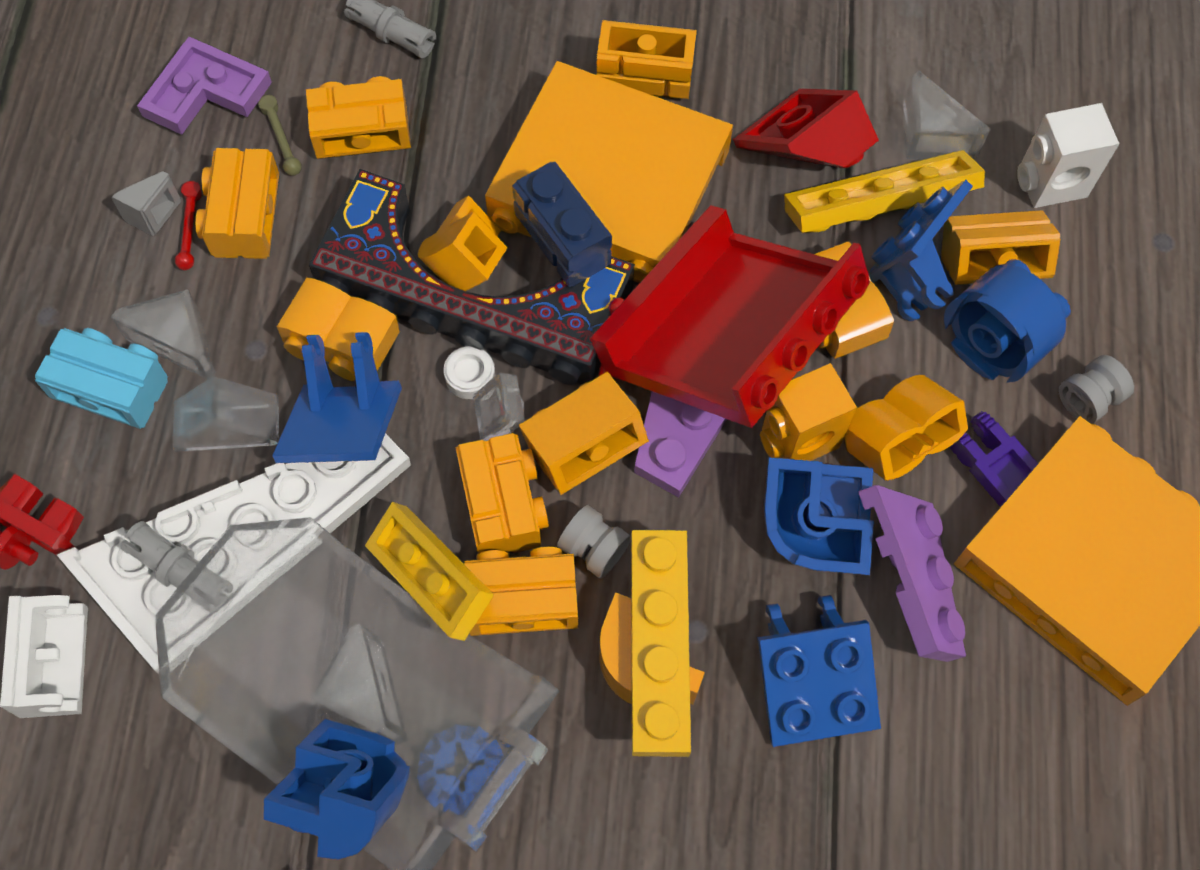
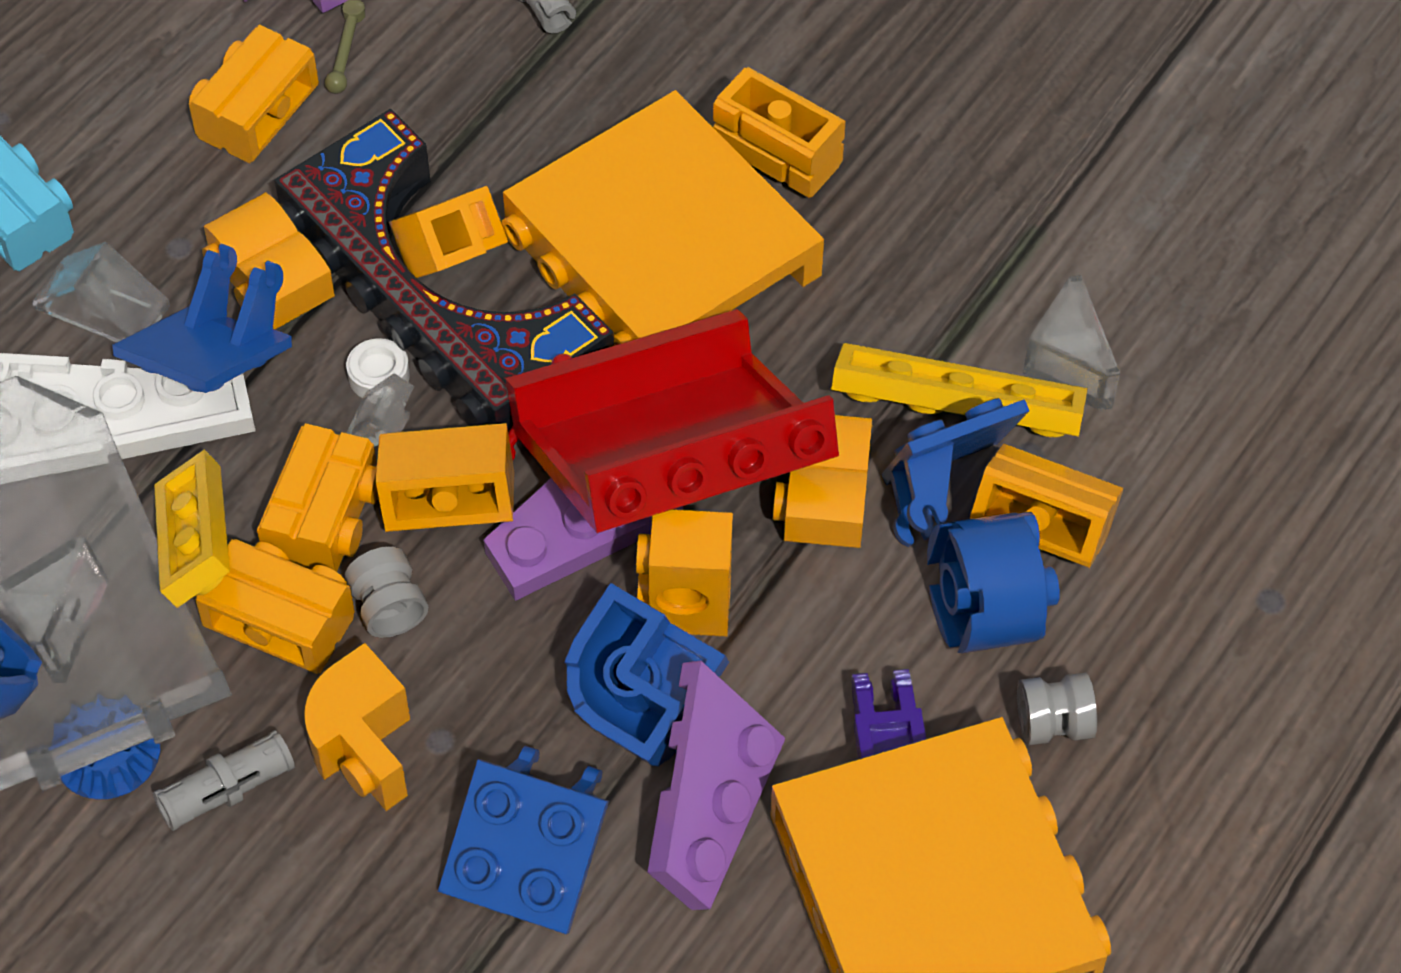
camera: 30 degrees right, 10 degrees down
(148, 202) = (163, 52): light grey slope -> none
(170, 329) = (104, 184): clear slope -> none
(191, 193) = (165, 125): red hinge -> none
(358, 117) = (432, 61): light orange brick -> none
(562, 223) = (552, 250): dark blue brick -> none
(570, 749) = (223, 780): none -> light grey pin
(660, 644) = (371, 710): yellow plate -> none
(814, 128) = (924, 289): red slope -> none
(905, 426) = (808, 636): light orange brick -> none
(1067, 155) = (1187, 440): white brick -> none

